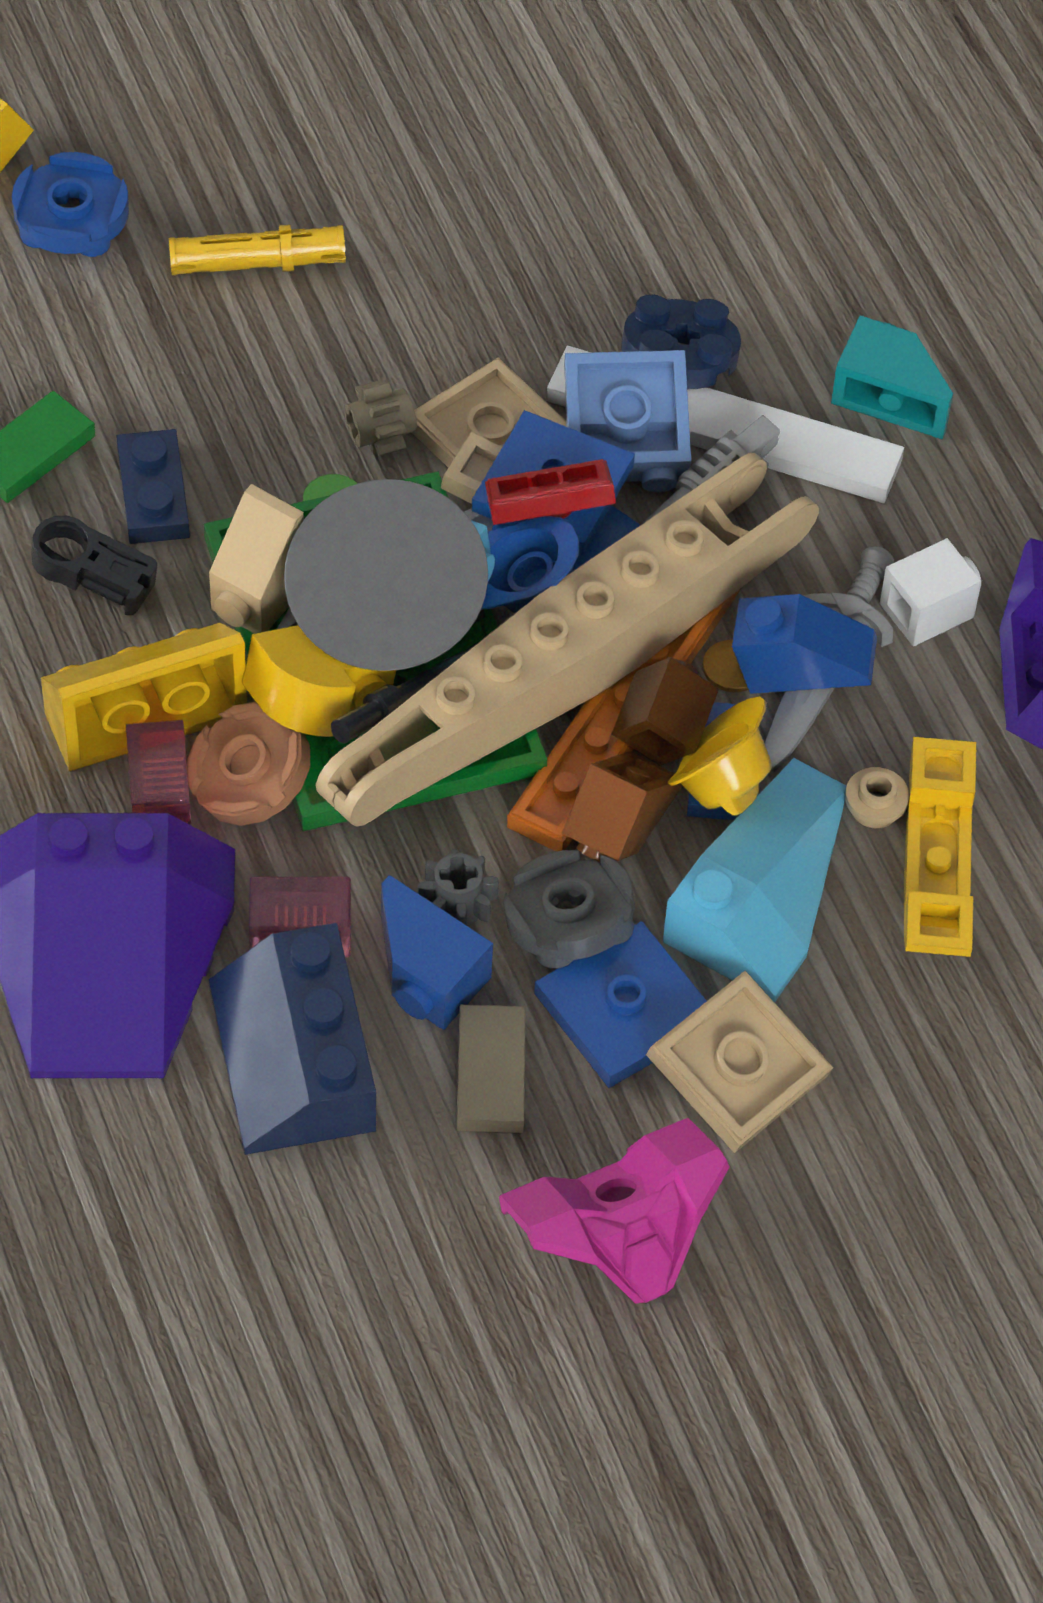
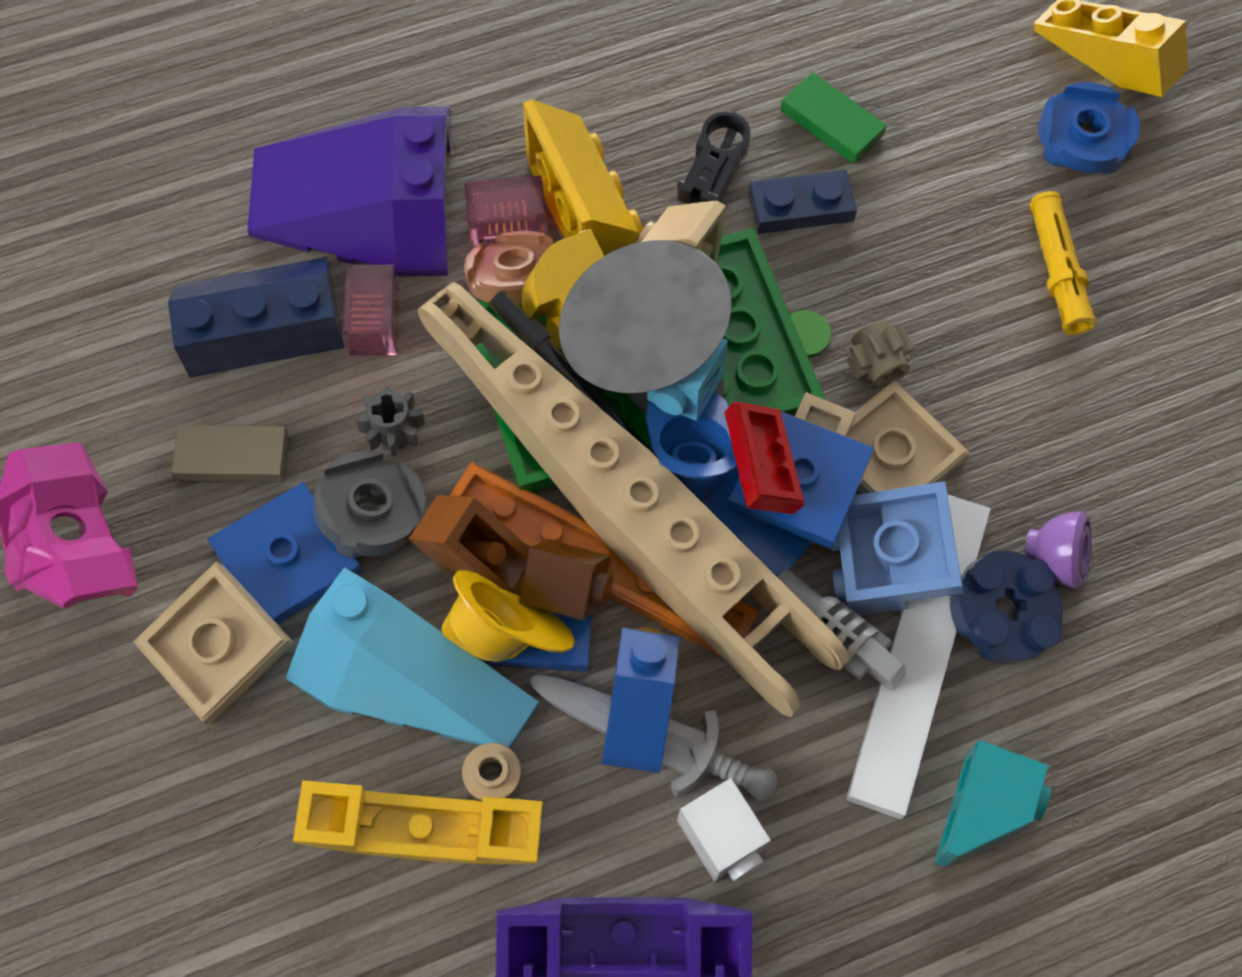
camera: 90 degrees right, 10 degrees up
(430, 955) = (326, 396): blue slope -> none
(614, 286) = (1064, 546): none -> medium lavender brick

